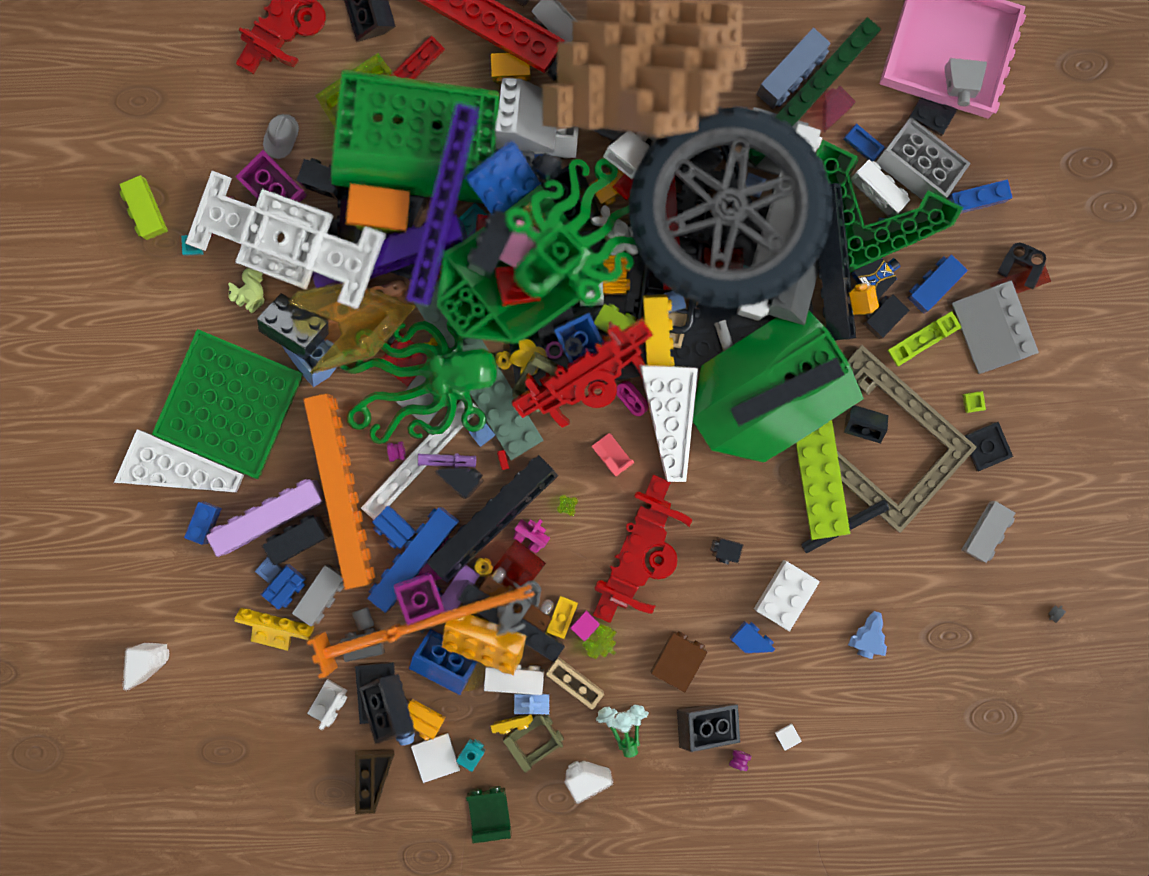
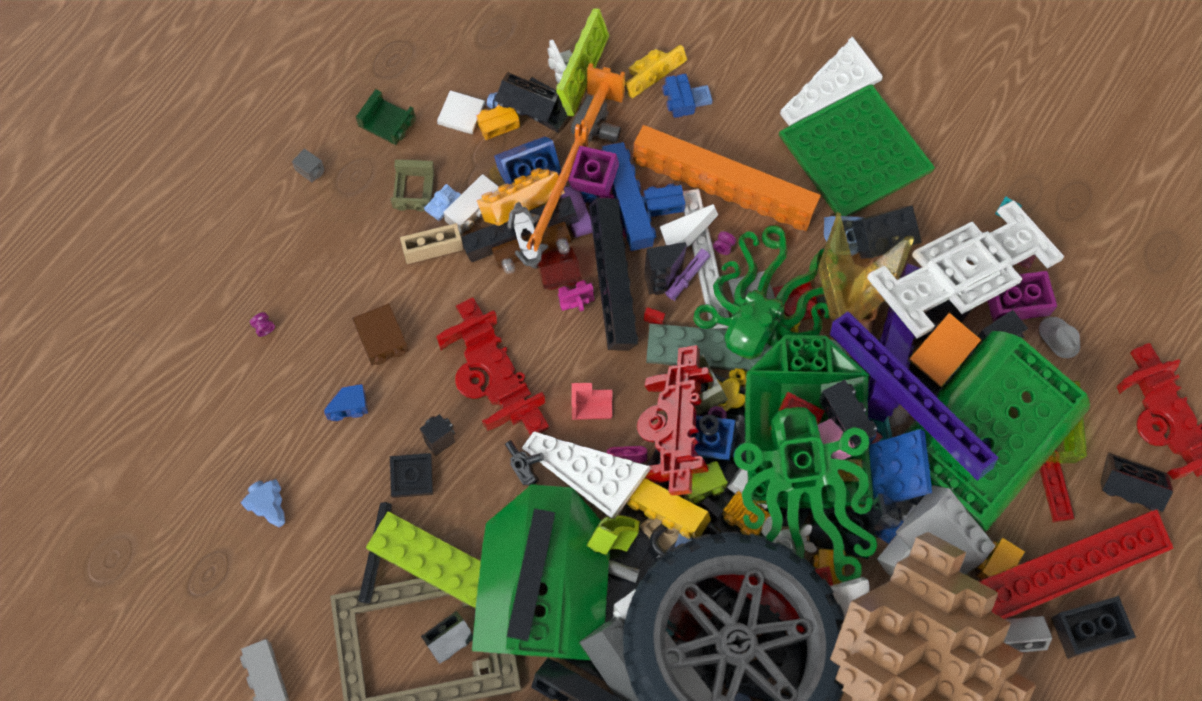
camera: 125 degrees right, 20 degrees down
(142, 208) = (1065, 194): lime brick -> none
(202, 522) = (773, 73): blue brick -> none
(250, 293) = (936, 221): yellowish green animal -> none
(266, 518) = (745, 111): lavender brick -> none
(295, 539) = (711, 120): black brick -> none
(314, 689) = (586, 51): none -> lime plate
(319, 596) = (651, 109): light grey brick -> none
(370, 776) = (486, 55): dark brown wedge -> none
(413, 490) = (688, 227): none -> white slope
(471, 754) = (441, 135): teal brick -> none
(478, 567) = (582, 240): yellow plate -> none
(483, 435) = (686, 317): medium blue plate -> none
(519, 722) = (441, 176): yellow plate -> none
(562, 617) = (491, 273): yellow plate -> none
(563, 501) = (578, 335): clear neon green plate -> none
(580, 841) = (308, 165): none -> dark grey brick
(585, 625) = (470, 282): dark pink panel -> none
(587, 779) = (351, 195): white slope -> none
(595, 648) = (442, 287): clear neon green hips -> none
(624, 722) = (370, 250): light aqua plant -> none
(698, 469) = (523, 463): none -> black piece
(706, 358) = (614, 534): none -> lime brick
(708, 726) = (309, 319): black slope -> none
(769, 547) = (411, 475): none -> black plate
(786, 595) = (359, 458): white brick -> none
(788, 737) = (246, 376): white tile -> none
(1056, 613) = (144, 682): dark grey plate -> none

